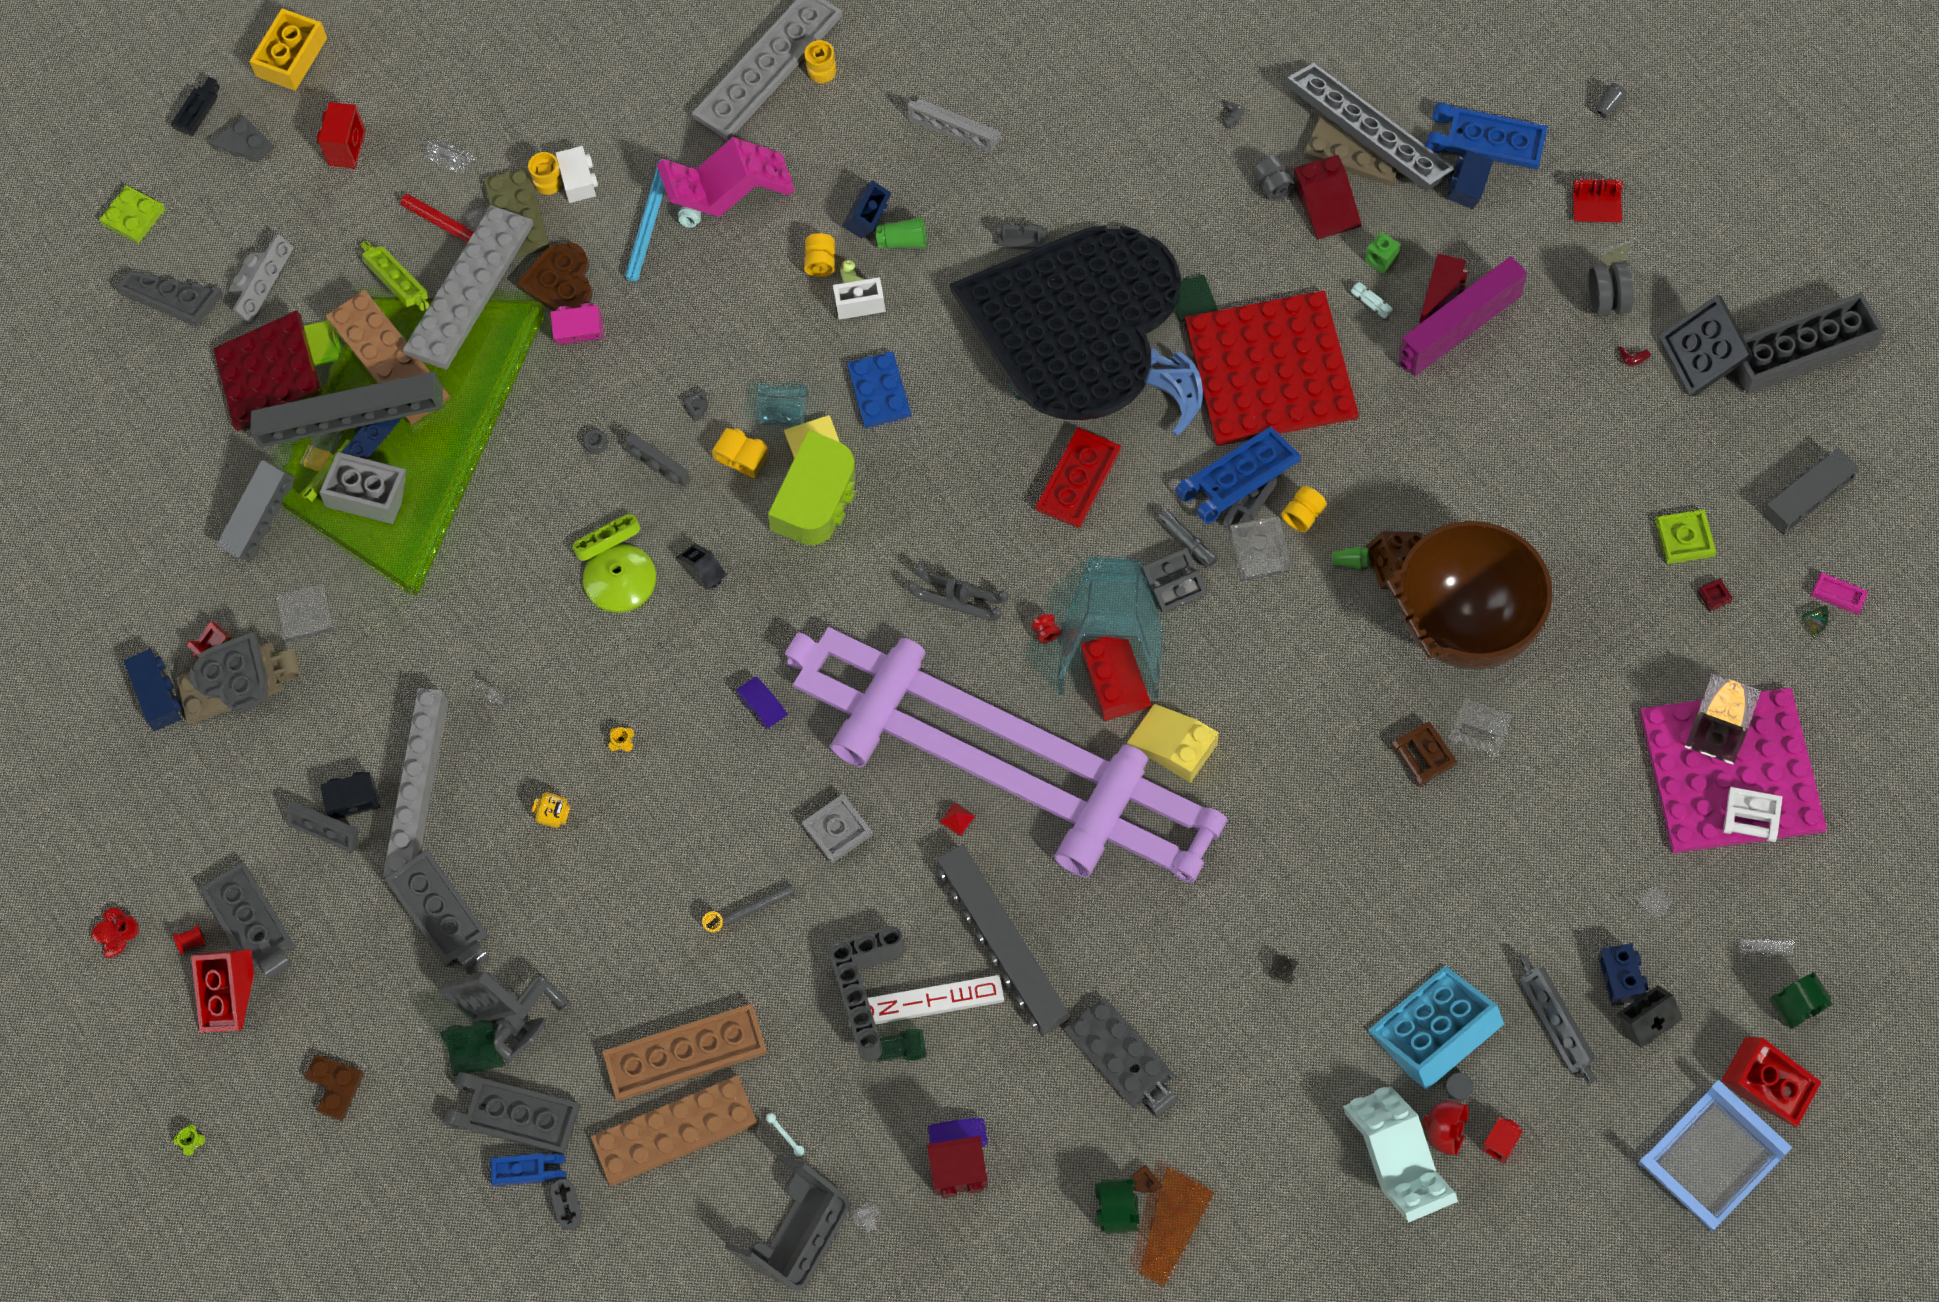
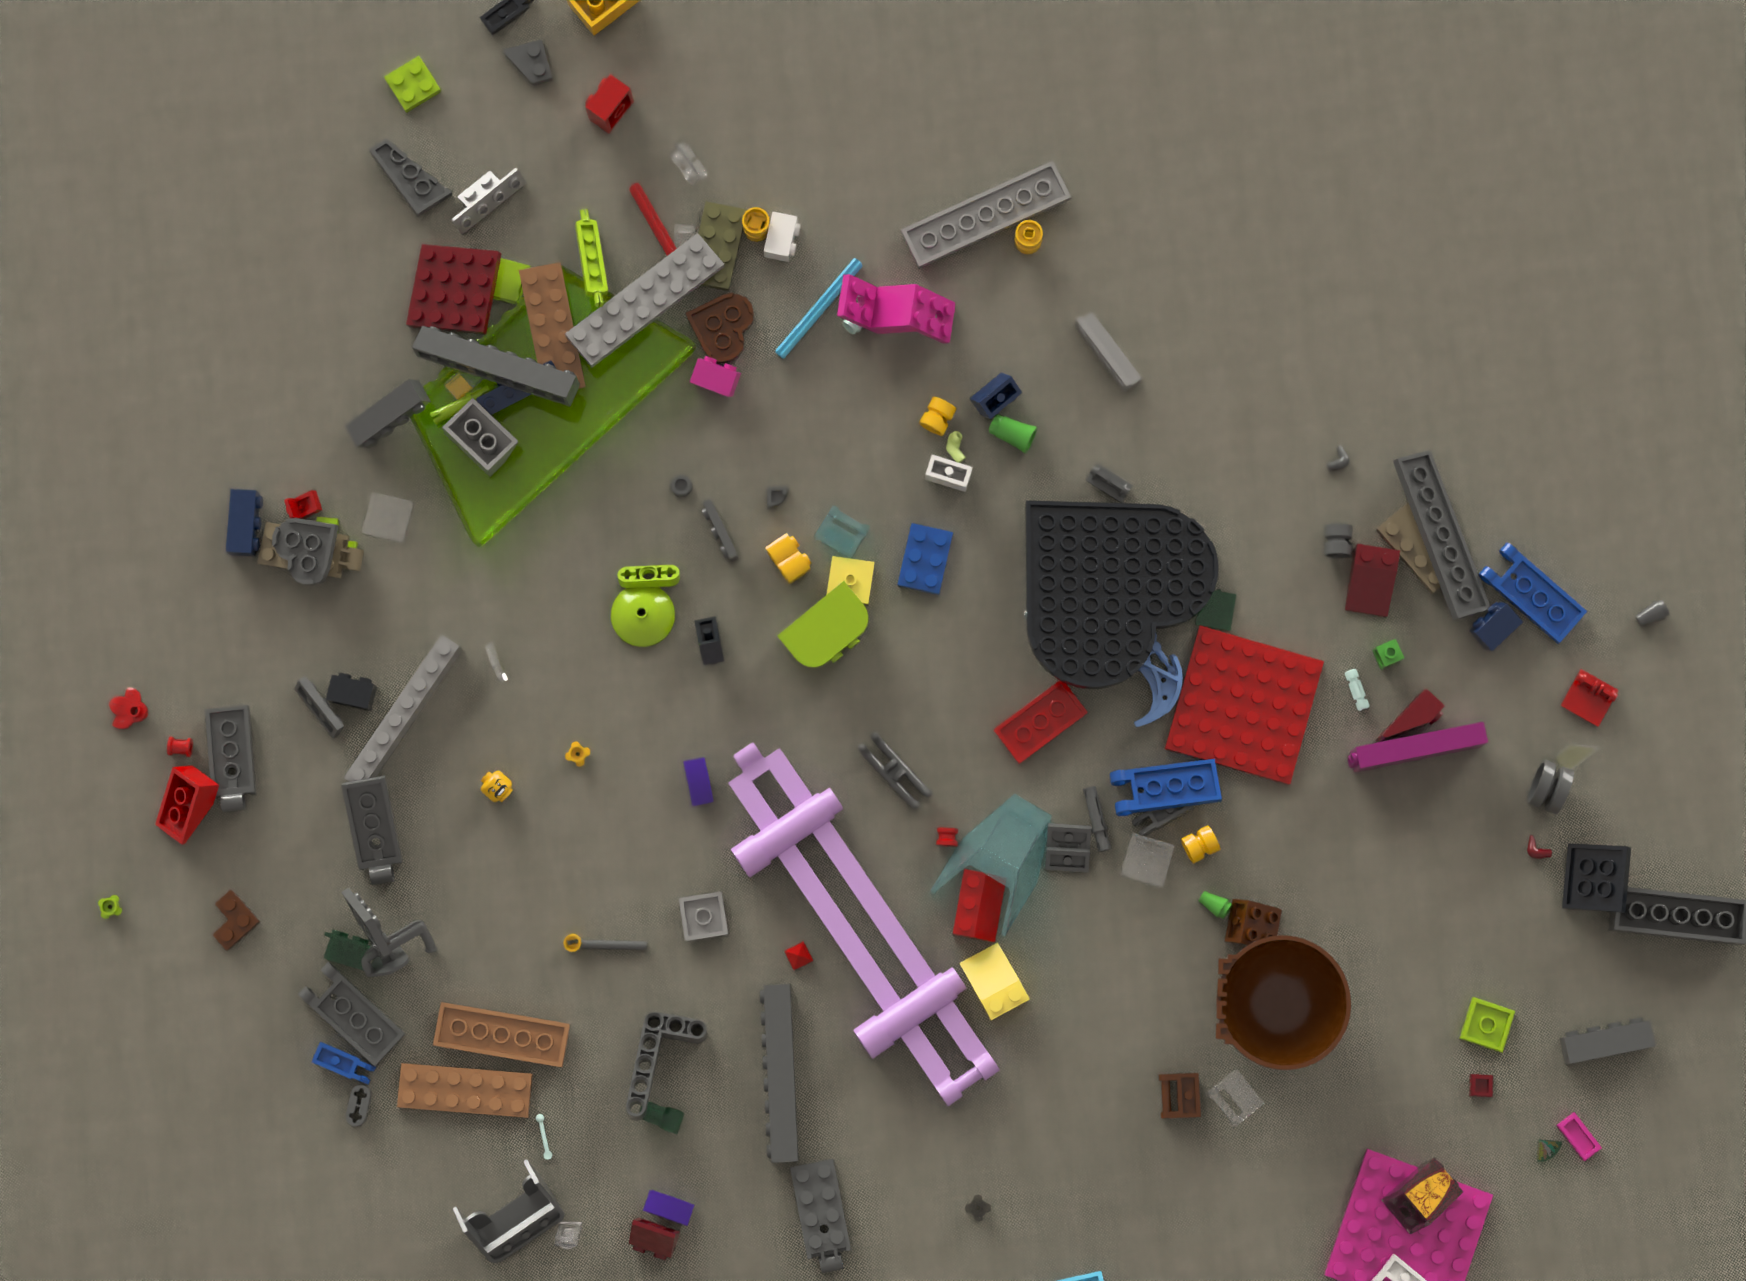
camera: 25 degrees right, 15 degrees up
(935, 1000) = (705, 1091): white tile -> none

